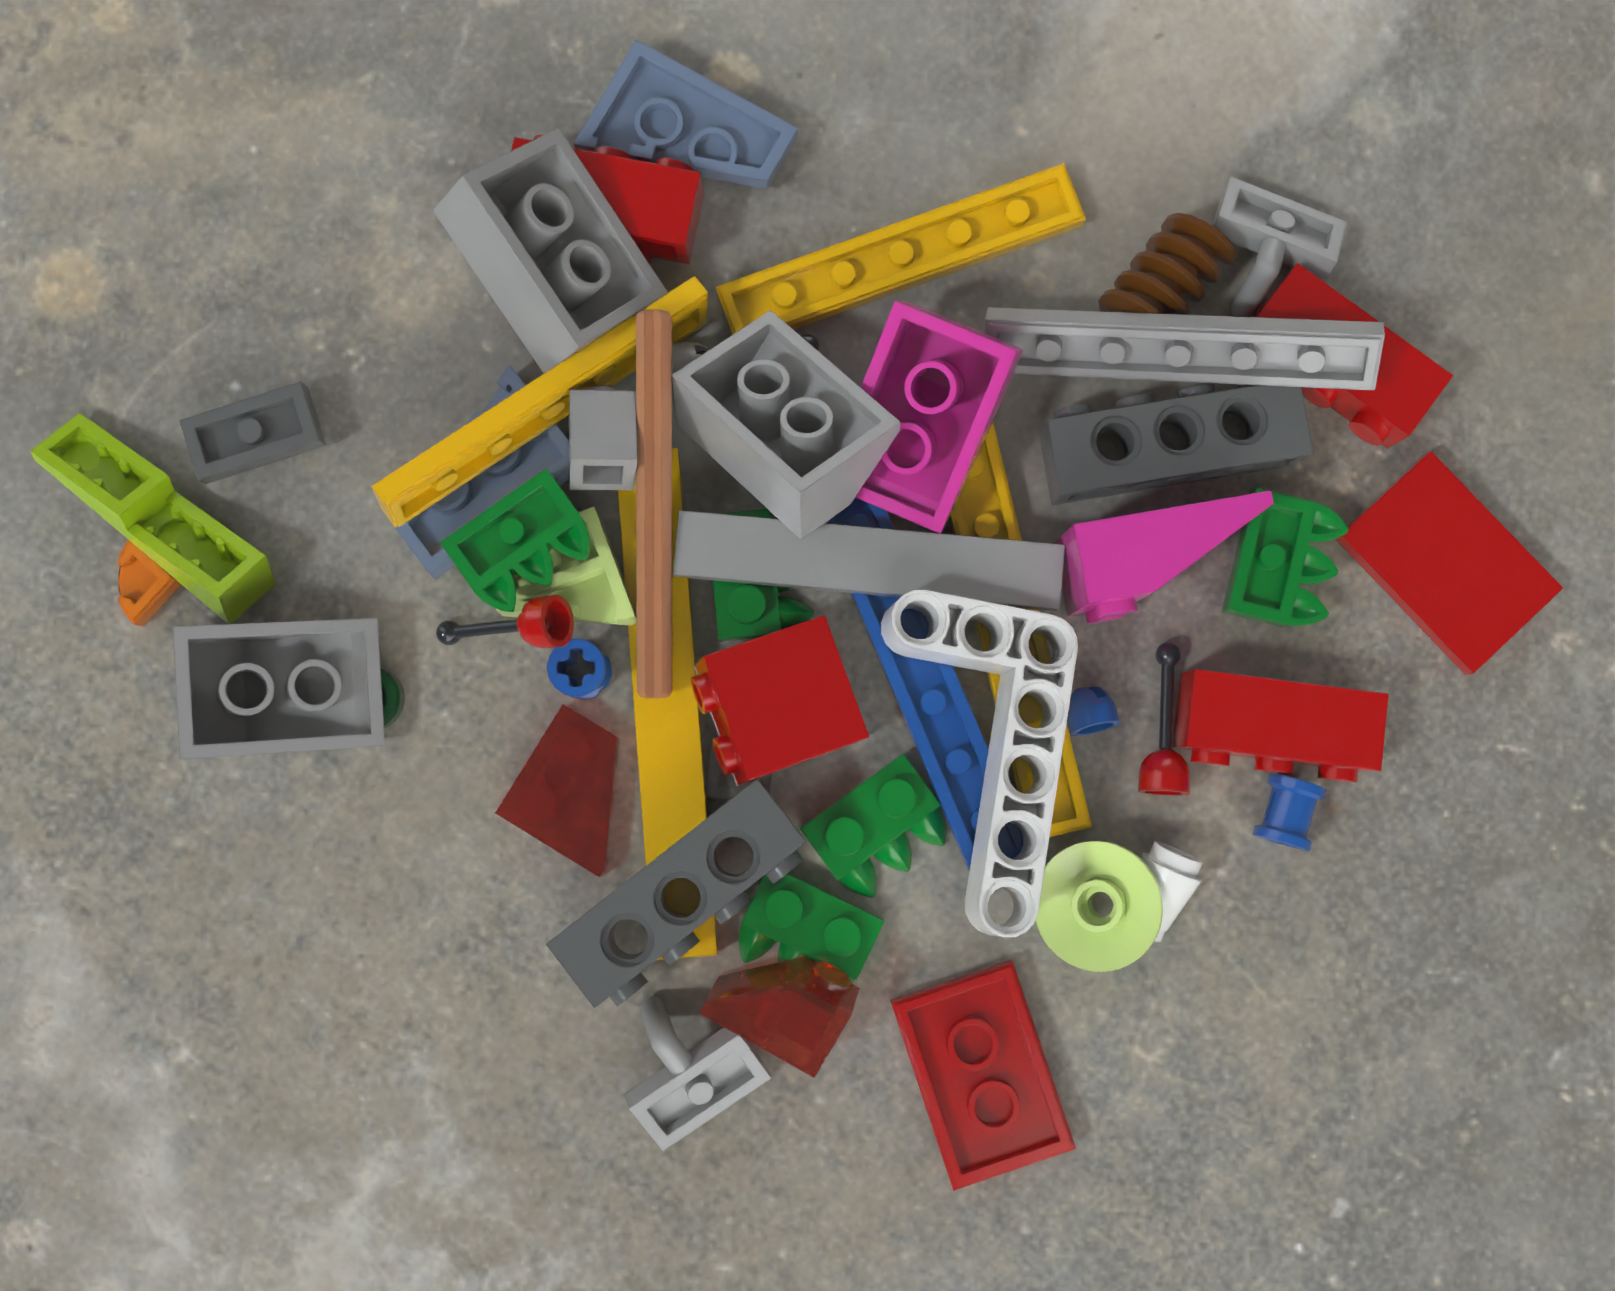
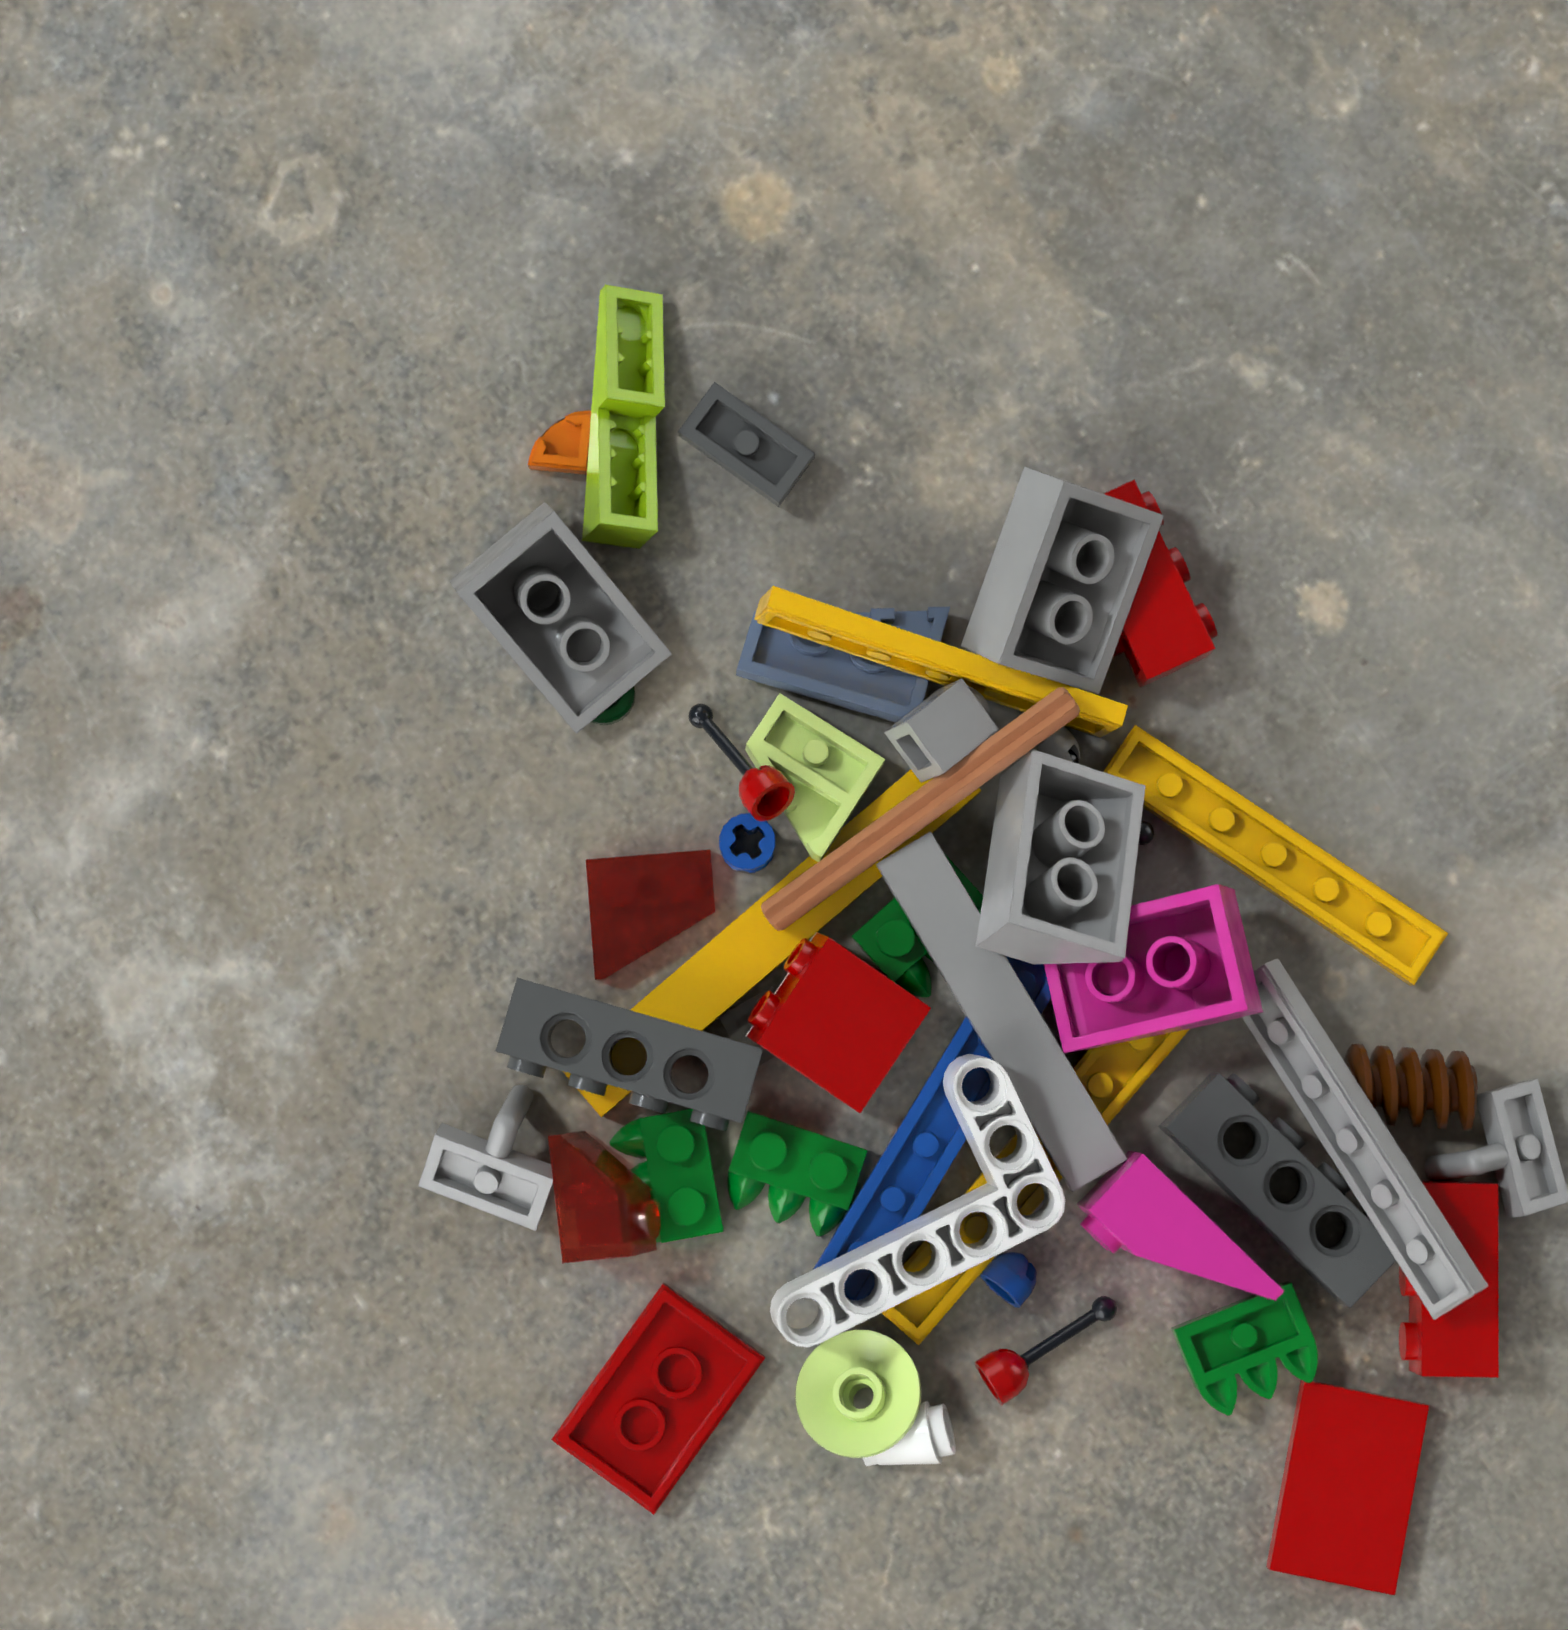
camera: 55 degrees right, 0 degrees up
(517, 539) = (814, 721): green plate -> none
(672, 112) = (1252, 590): sand blue wing -> none
(1280, 724) = (1111, 1438): red brick -> none
(1289, 811) = (1046, 1497): blue bush -> none

